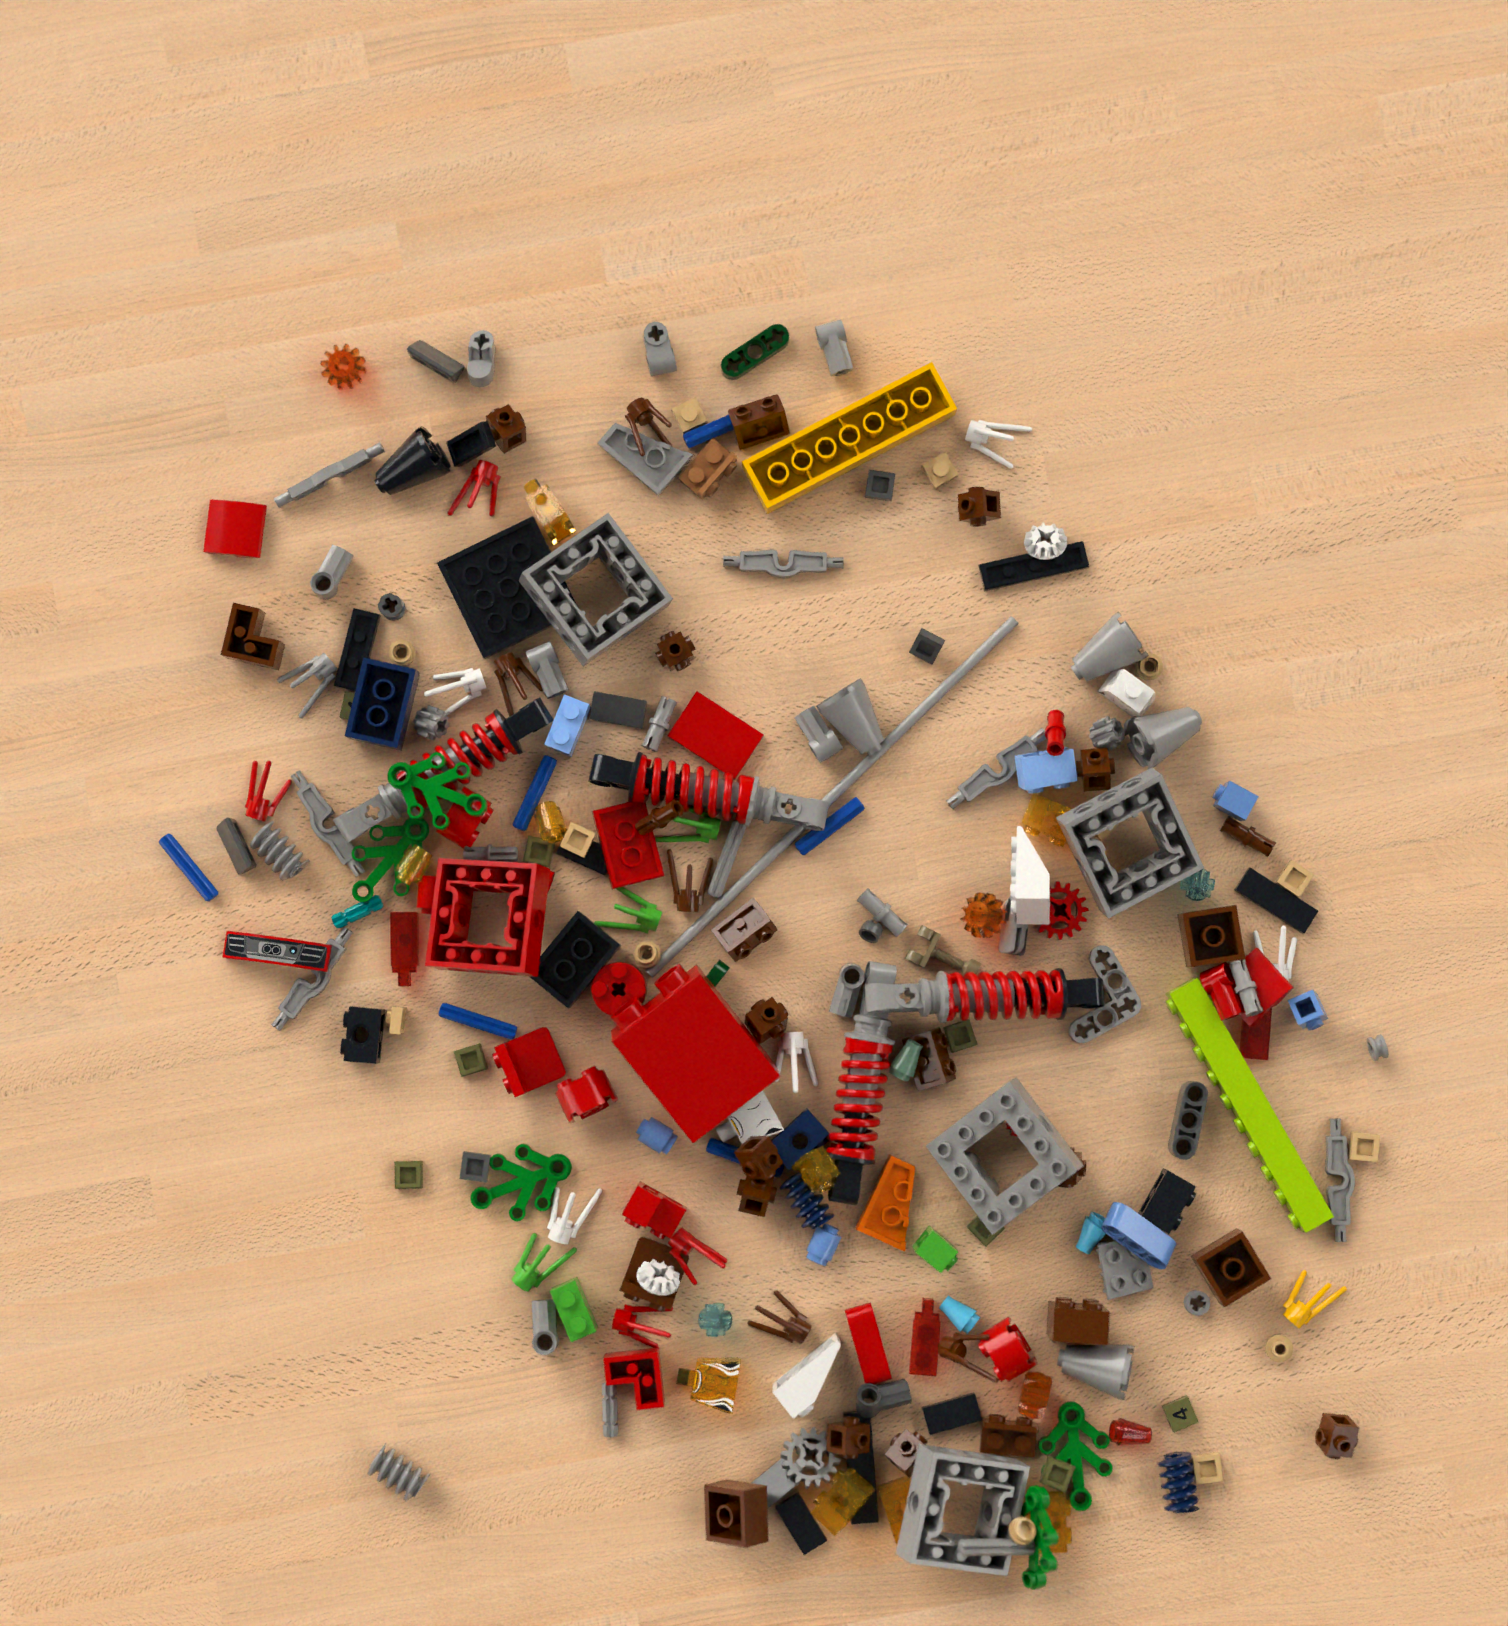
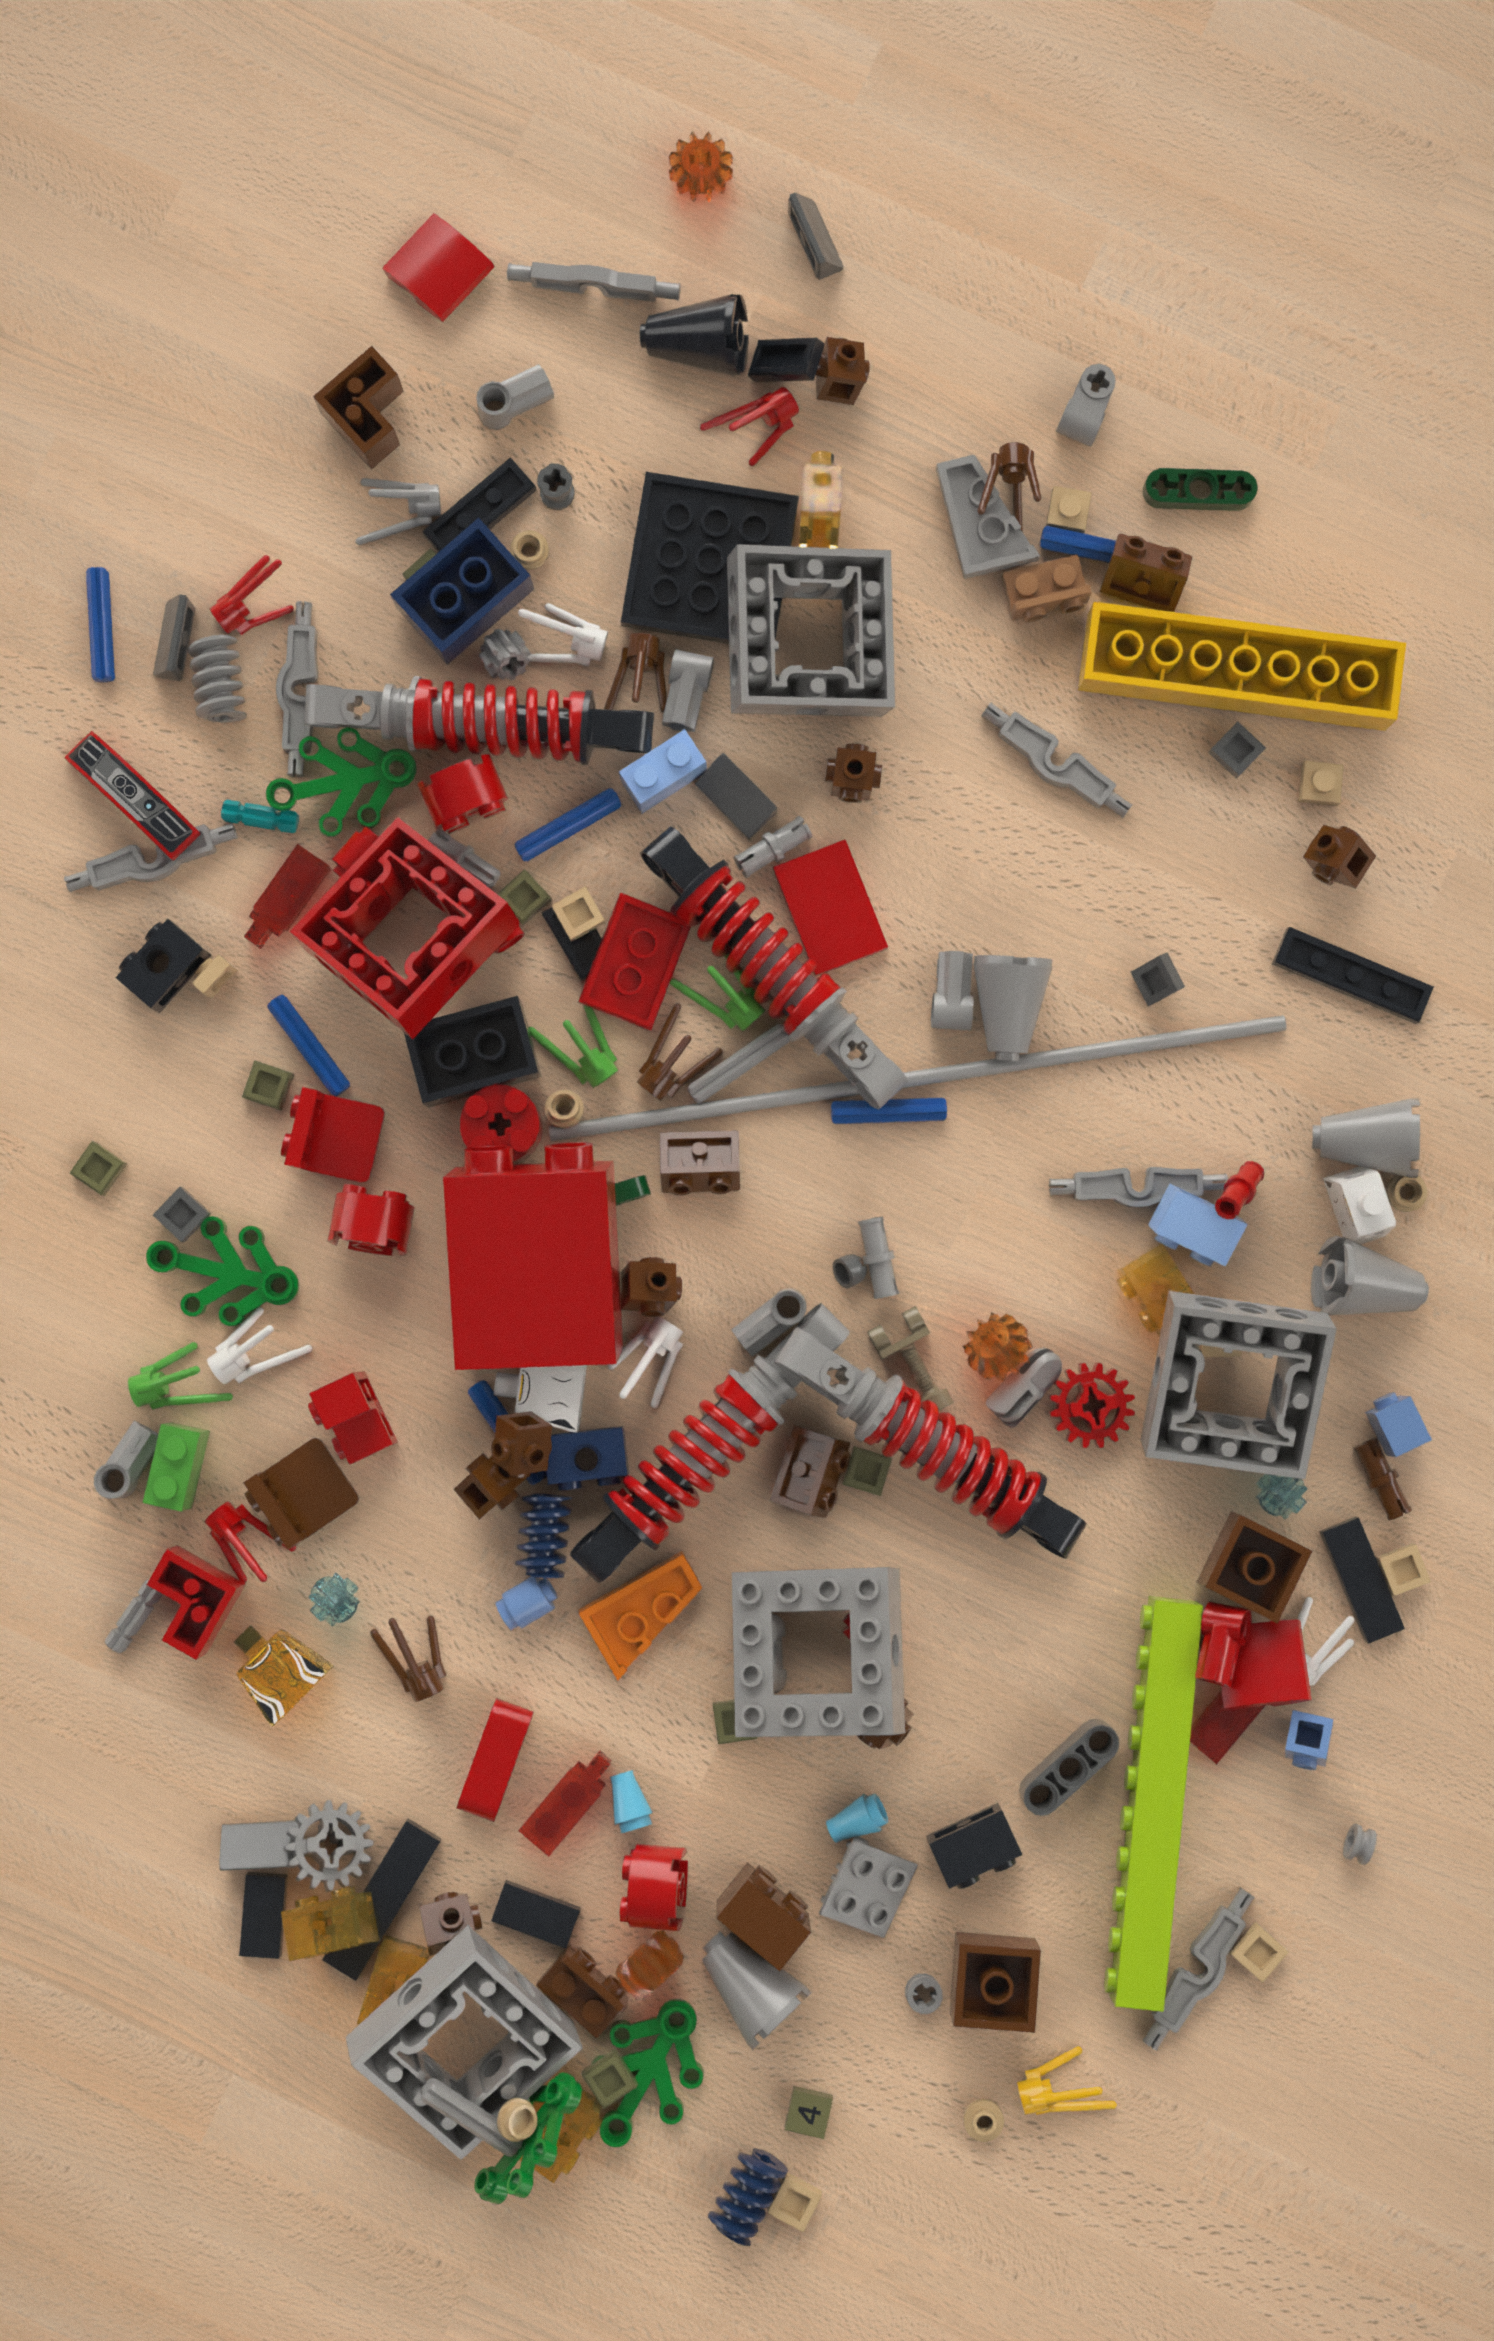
camera: 30 degrees right, 0 degrees up
(413, 865) = (362, 806): clear yellow brick -> none
(433, 787) = (449, 726): green plant -> none
(481, 346) = (858, 283): light grey piece -> none
(550, 822) = (561, 870): clear yellow brick -> none
(656, 1135) = (421, 1330): medium blue brick -> none
(658, 1285) = (293, 1509): white gear -> none
(659, 817) = (694, 955): reddish brown axle -> none
(684, 1243) = (363, 1482): red plant -> none
(736, 1513) = (192, 1849): reddish brown brick -> none
(803, 1382) = (382, 1749): white slope -> none
(817, 1170) = (581, 1508): clear yellow brick -> none
(833, 342) = (1301, 541): light grey piece -> none
(848, 1437) = (390, 1855): reddish brown brick -> none
(885, 1397) = (470, 1836): dark grey piece -> none
(905, 1062) = (779, 1455): sand green cone -> none
(936, 1250) = (655, 1706): bright green brick -> none
(955, 1350) = (593, 1843): reddish brown plant -> none
(980, 431) = (1400, 771): white plant -> none
(1028, 883) = (1080, 1346): white slope -> none
(1045, 550) = (1380, 962): white gear -> none
(1095, 769) = (1261, 1262): reddish brown brick -> none
(1107, 733) = (1300, 1235): light grey gear -> none
(1116, 995) = (1087, 1555): light grey beam -> none
(1129, 1433) = (730, 2091): clear red cone -> none
(1138, 1235) = (911, 1864): medium blue beam -> none
(1245, 988) = (1253, 1659): light grey pin -> none
(1337, 1435) = (979, 2278): reddish brown brick -> none

